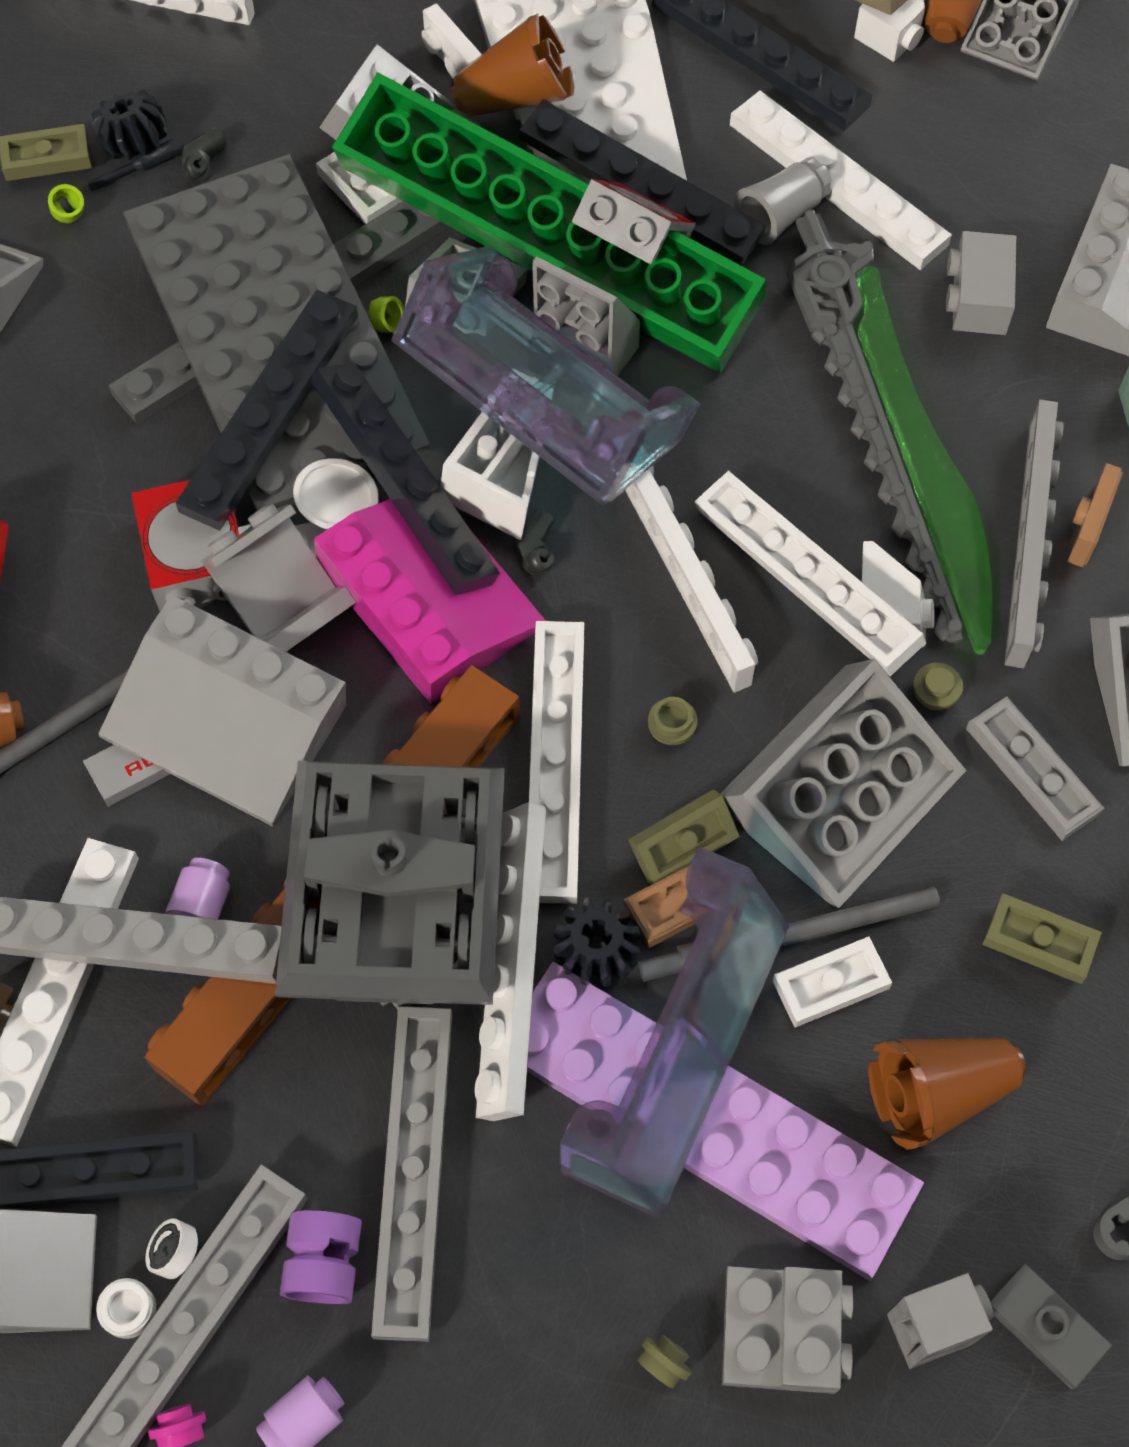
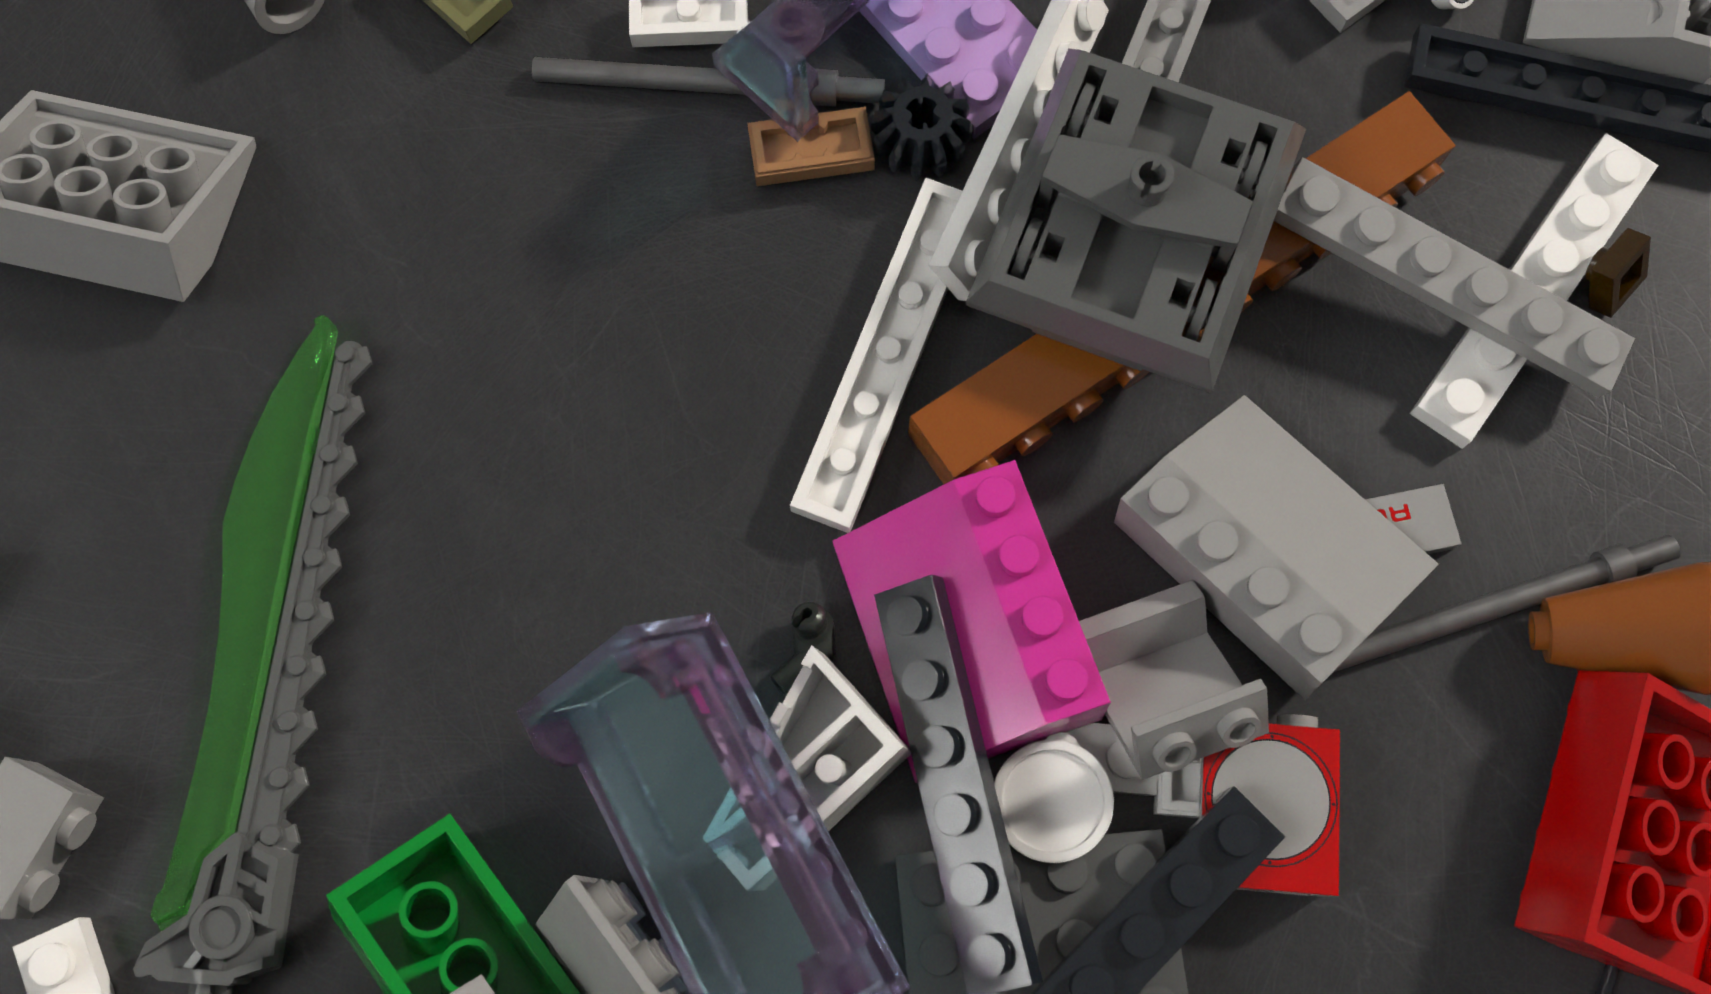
camera: 160 degrees left, 10 degrees up
(200, 890) = (1354, 323): lavender brick -> none
(672, 721) = (732, 356): olive plate -> none
(675, 839) = (798, 204): olive plate -> none
(694, 580) = (627, 517): white plate -> none
(811, 573) = (488, 459): white plate -> none
(843, 782) = (575, 215): light grey slope -> none
(896, 586) = (404, 397): white slope -> none
(937, 686) = (405, 291): olive plate -> none
(1032, 549) = (177, 445): light grey plate -> none
(1034, 768) = (351, 169): light grey tile -> none
(1092, 515) = (92, 433): medium nougat plate -> none

